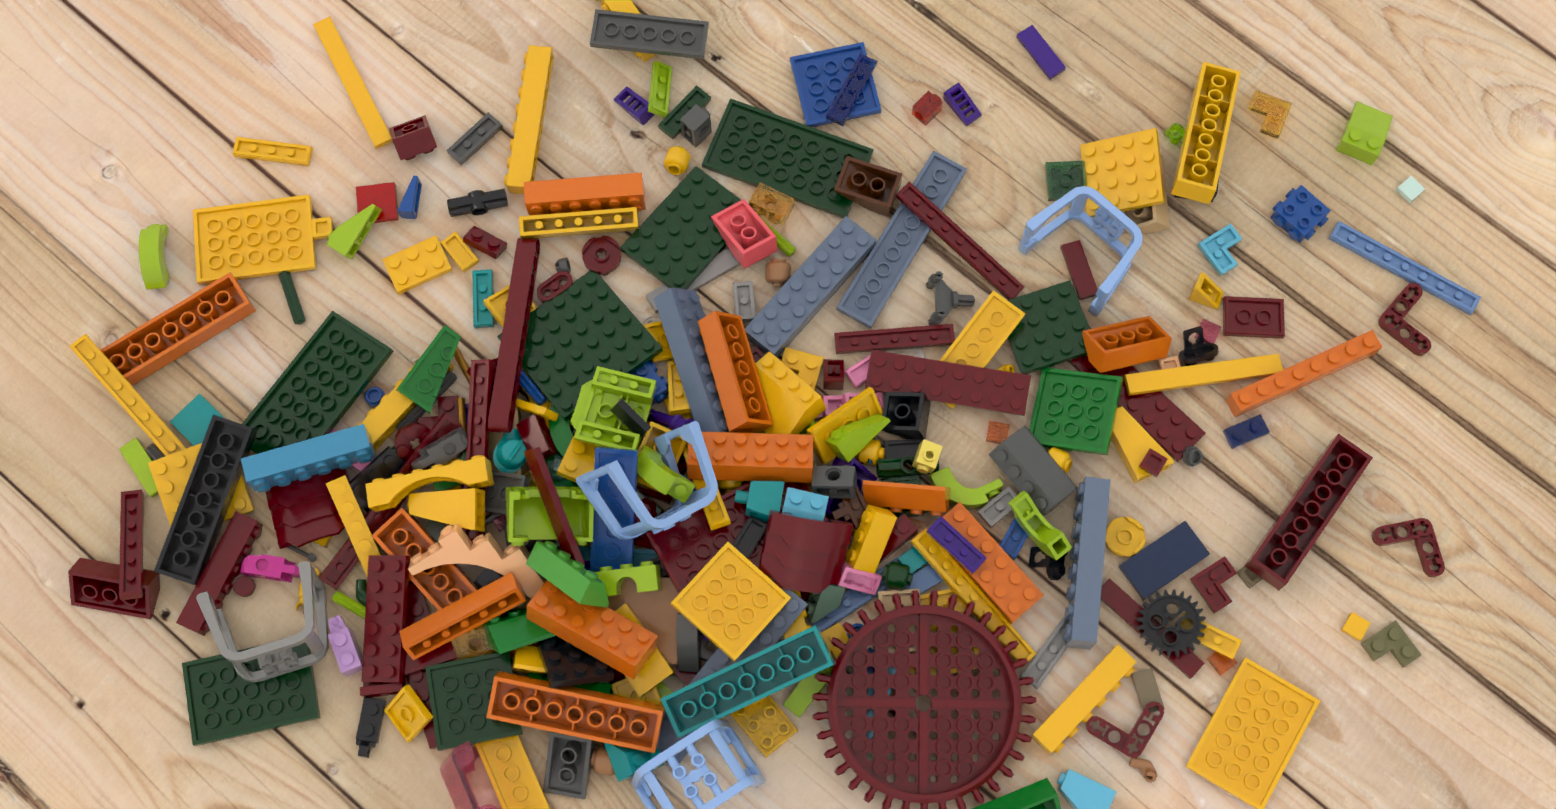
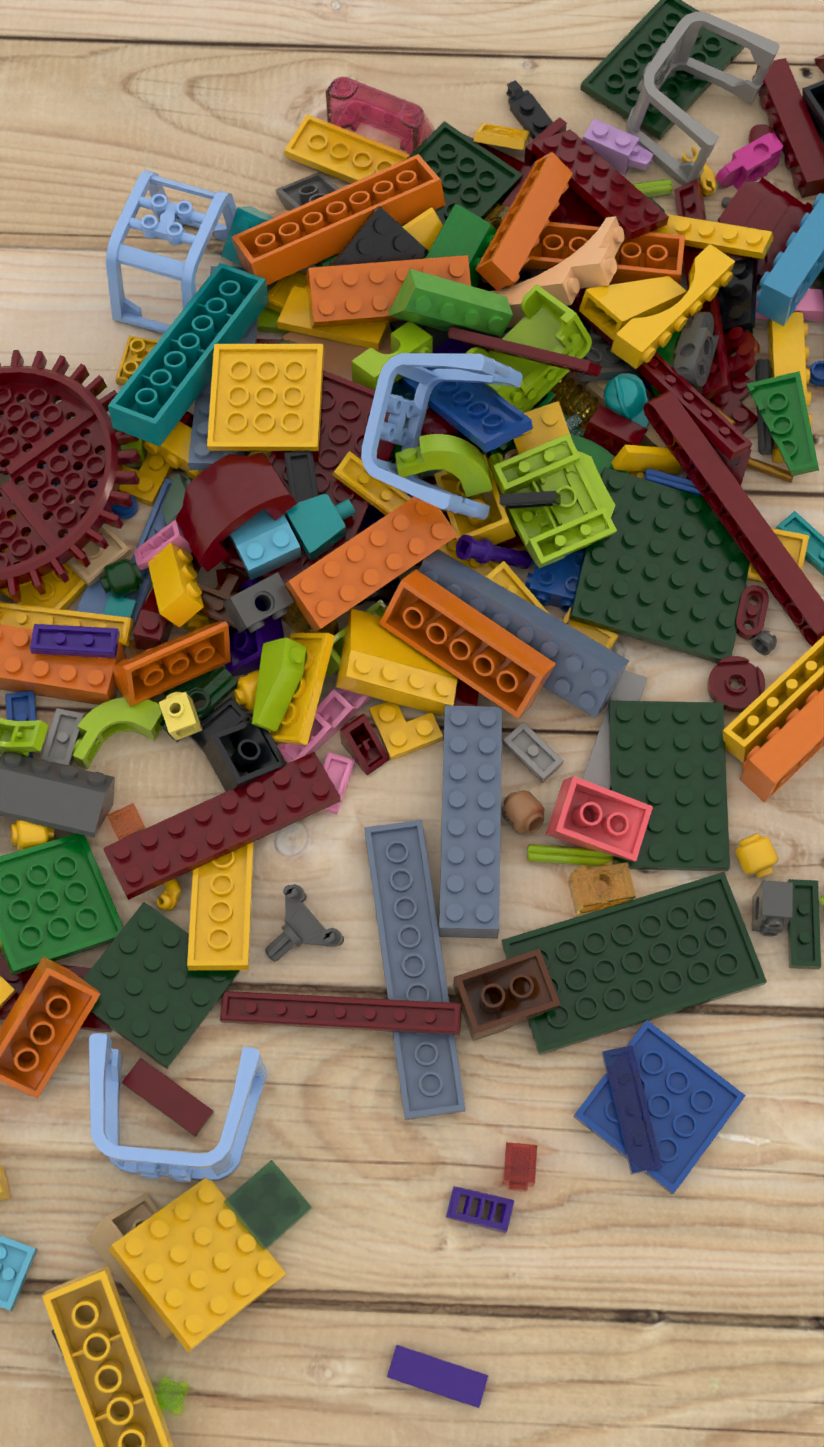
camera: 140 degrees right, 5 degrees down
(894, 338) = (326, 838): dark red plate -> none

